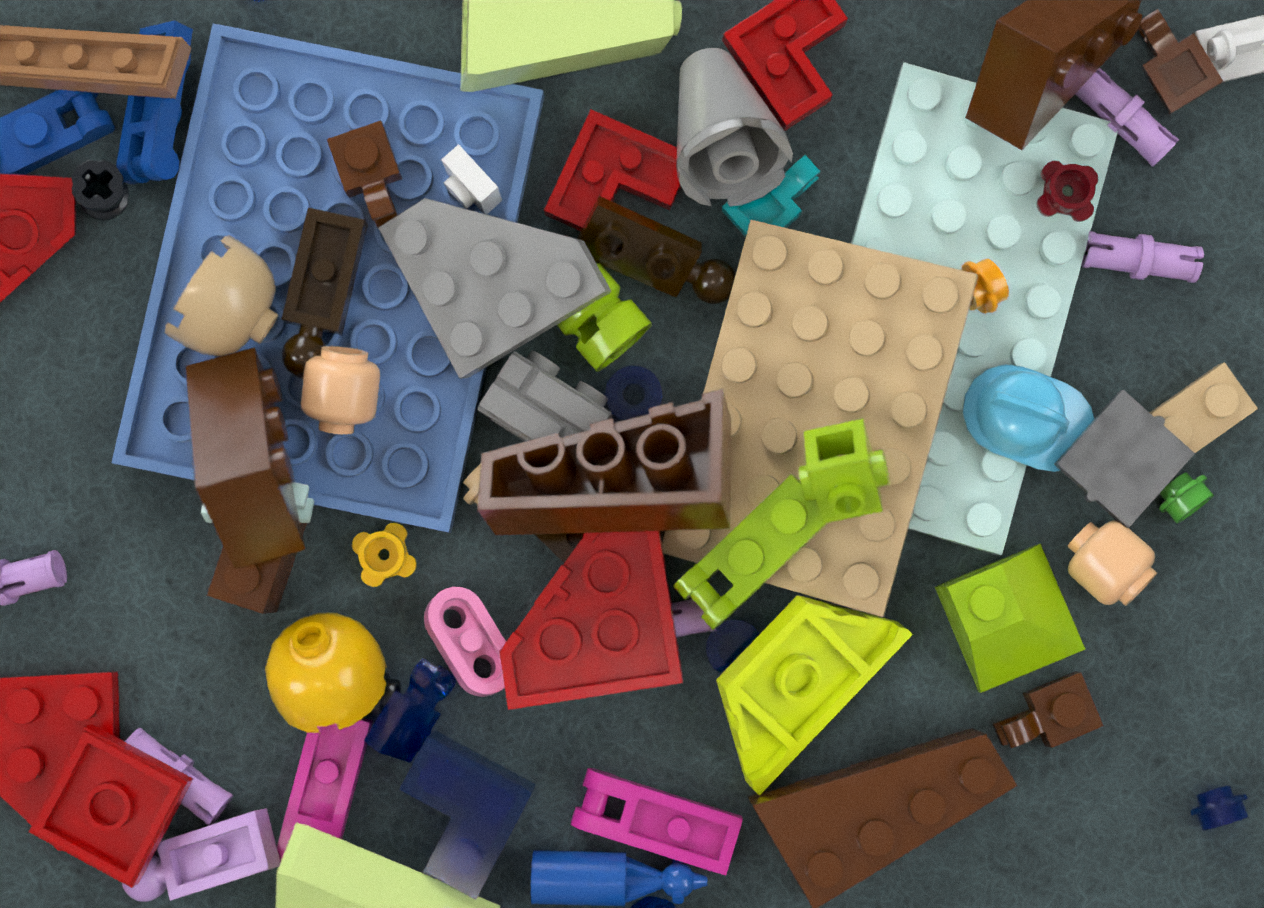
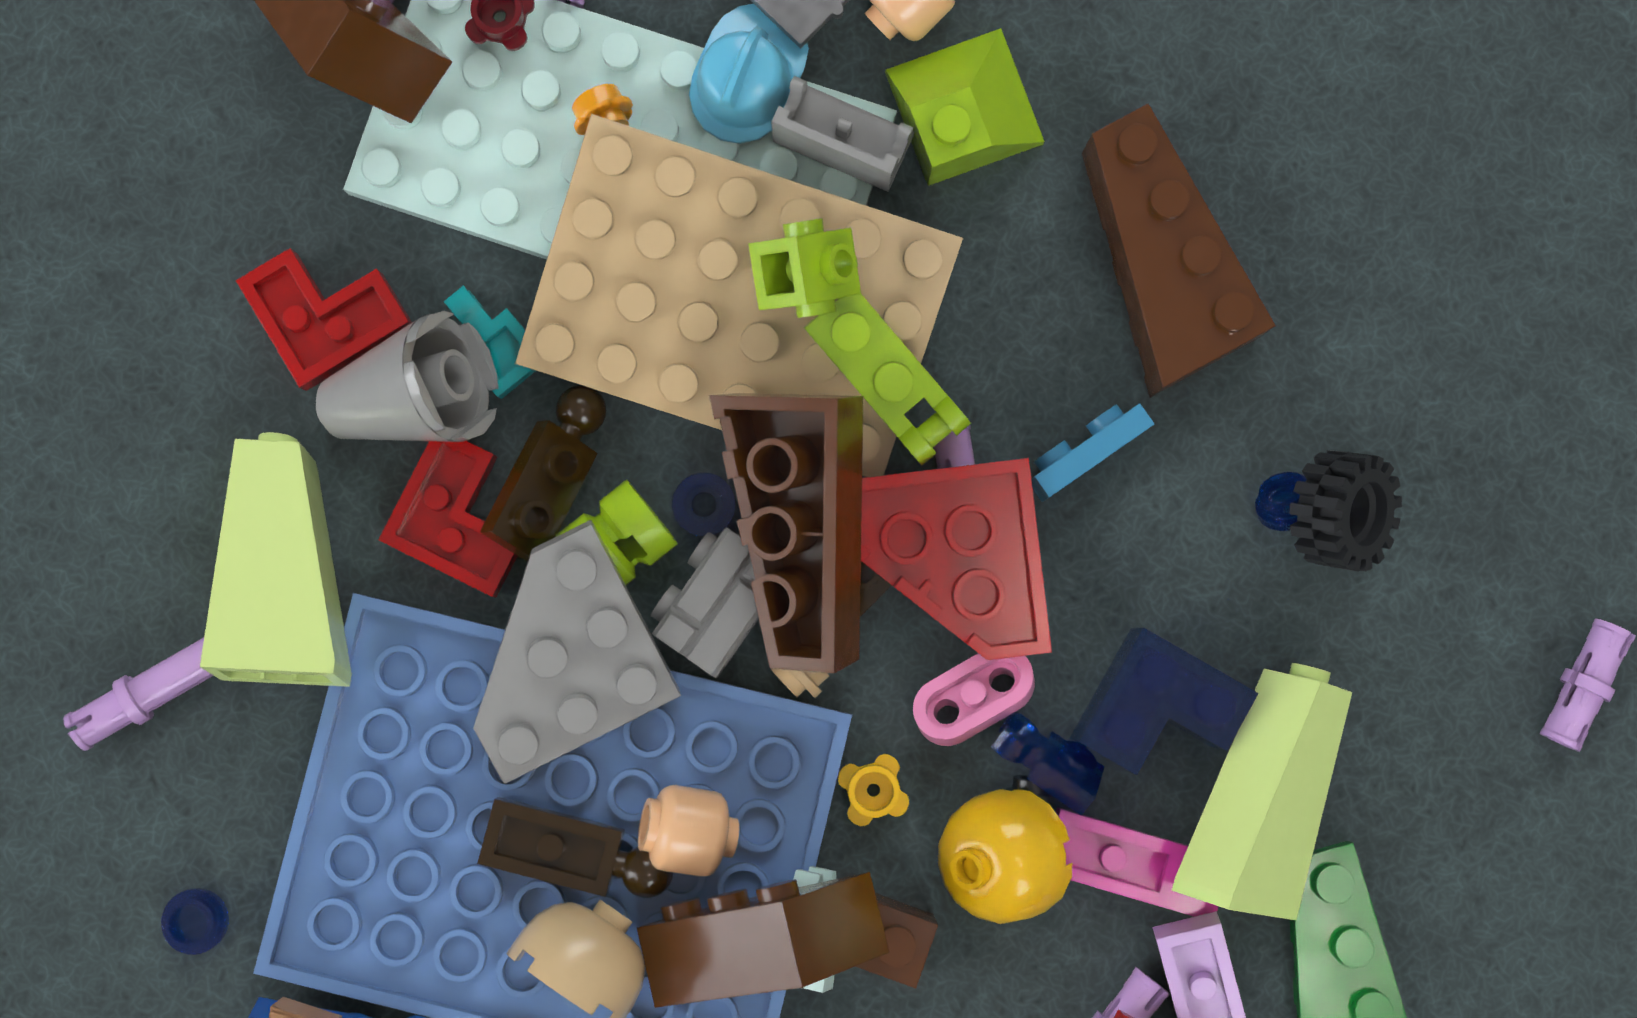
camera: 85 degrees left, 0 degrees up
(367, 167) = (432, 795): reddish brown plate -> none
(469, 182) = (456, 677): white plate -> none
(605, 879) = (1236, 553): blue wheel -> none
(659, 822) = (1175, 493): dark pink plate -> none
(711, 758) = (1108, 432): none -> dark azure plate
(728, 643) = (990, 403): clear blue plate -> none
(799, 680) = (1027, 333): neon yellow wing -> none
(974, 503) = (841, 135): none -> light grey hinge
(1055, 711) = (1069, 62): reddish brown plate -> none

